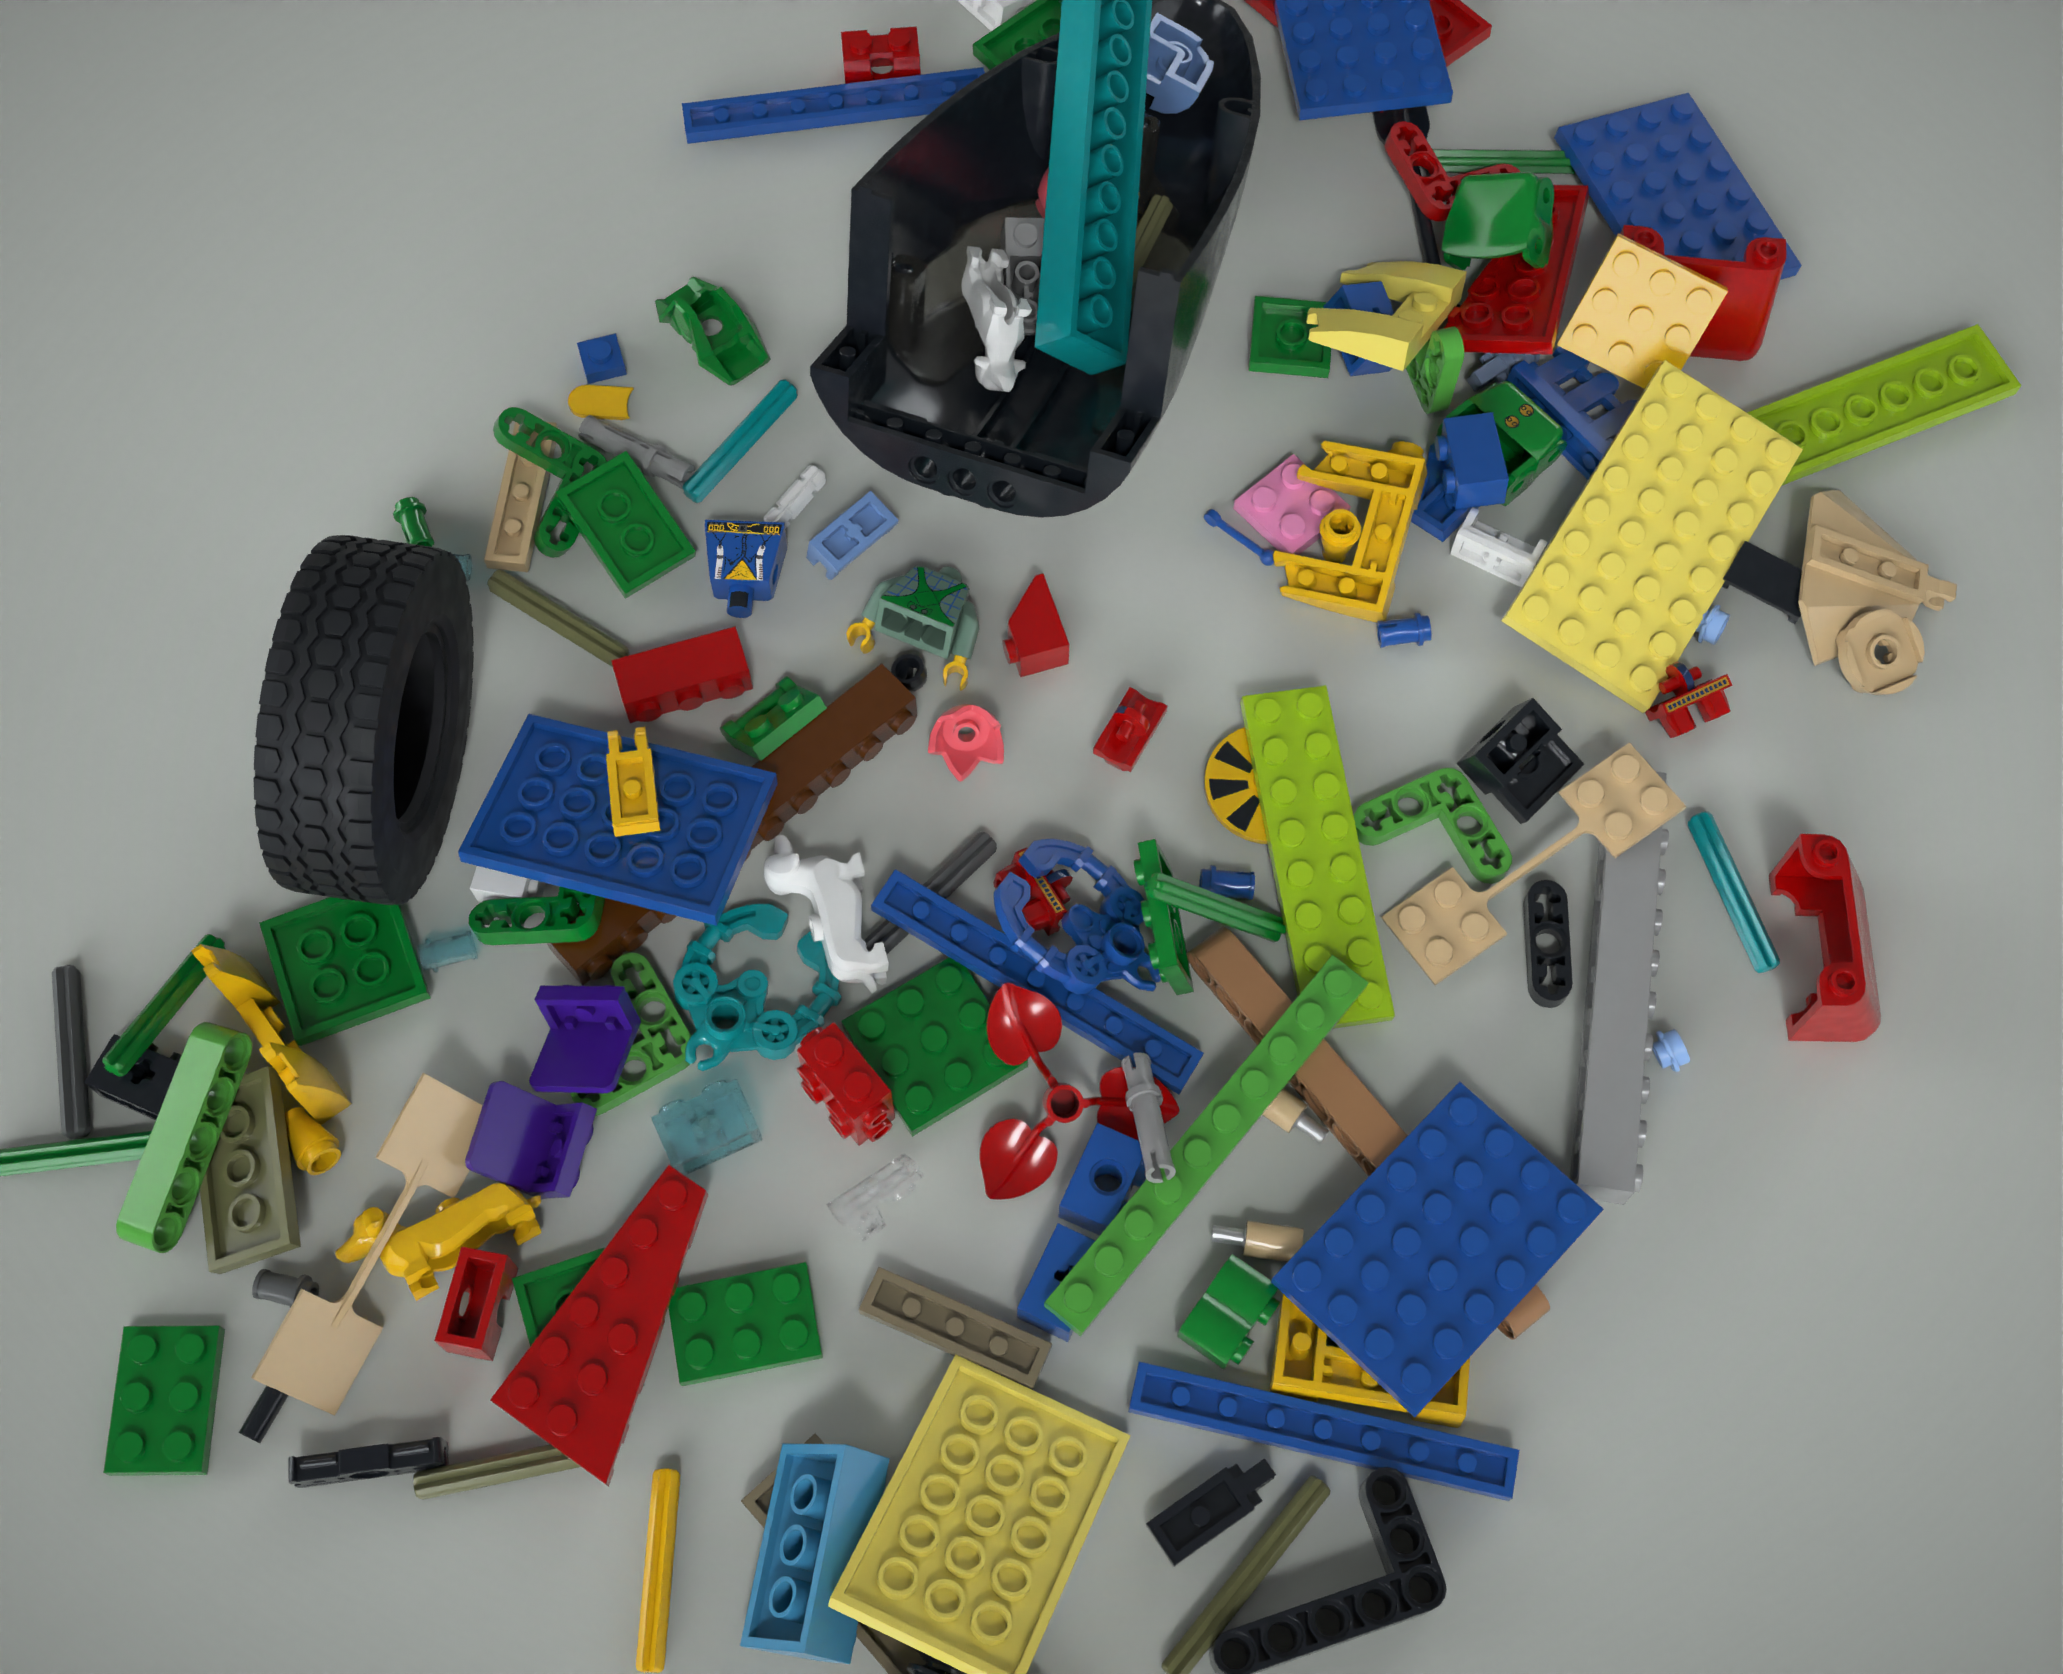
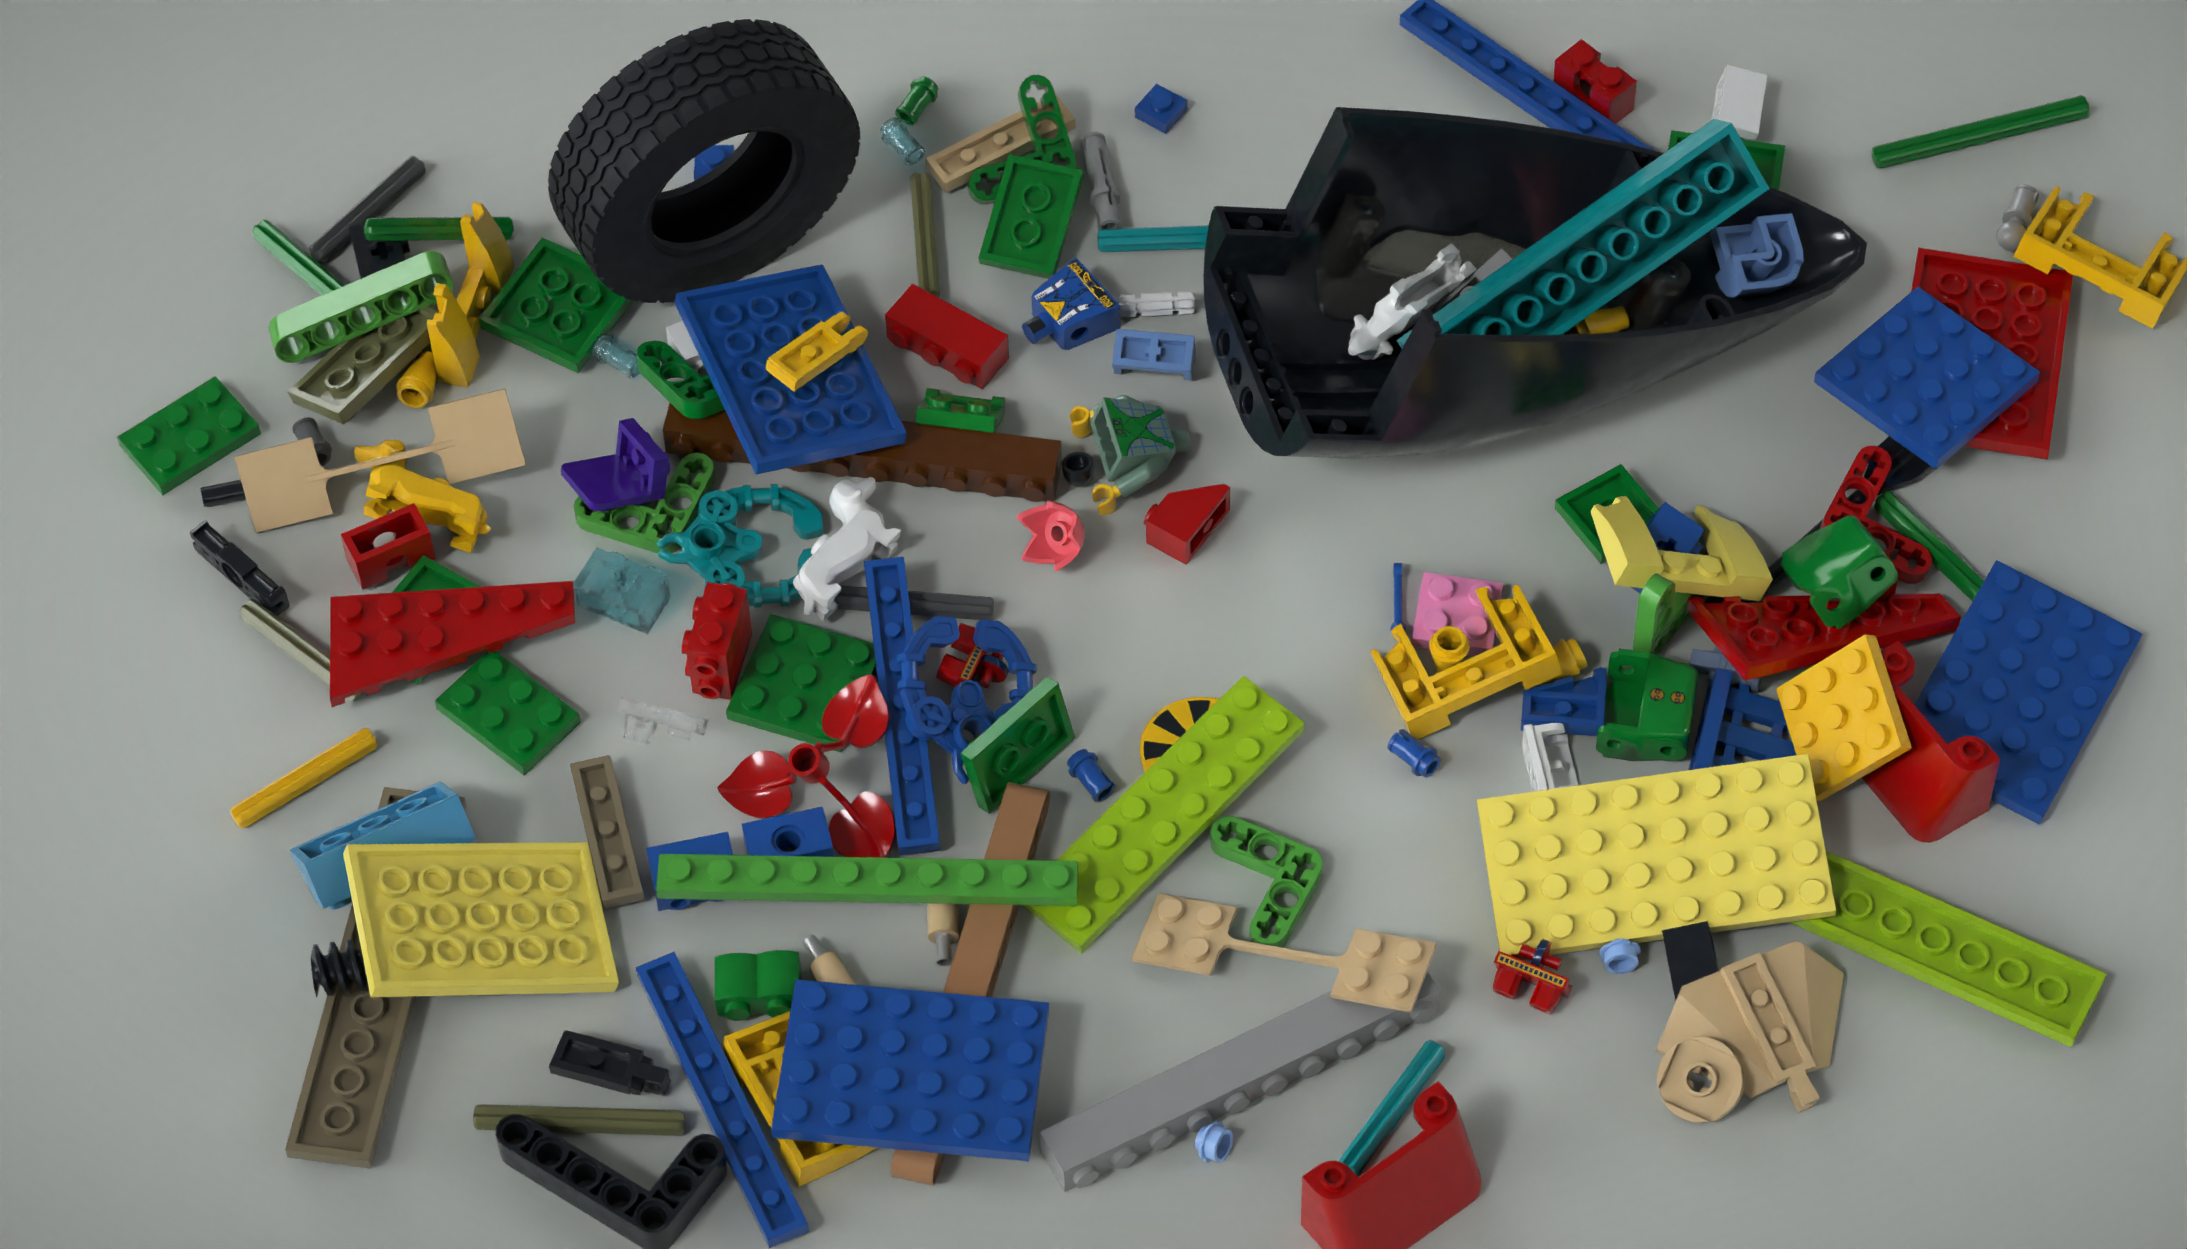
camera: 55 degrees right, 10 degrees down
(530, 1141) = (521, 492): dark purple bracket -> none
(600, 401) = (1125, 134): yellow piece -> none
(732, 351) = (1241, 179): green piece -> none
(1129, 730) = (1156, 630): red hips -> none
(1145, 1101) = (860, 819): light grey pin -> none
(1215, 907) = (1047, 762): green axle -> none
(1472, 461) = (1597, 692): blue brick -> none
(1497, 756) = (1366, 891): black brick -> none
(1558, 927) = (1224, 1028): black beam -> none

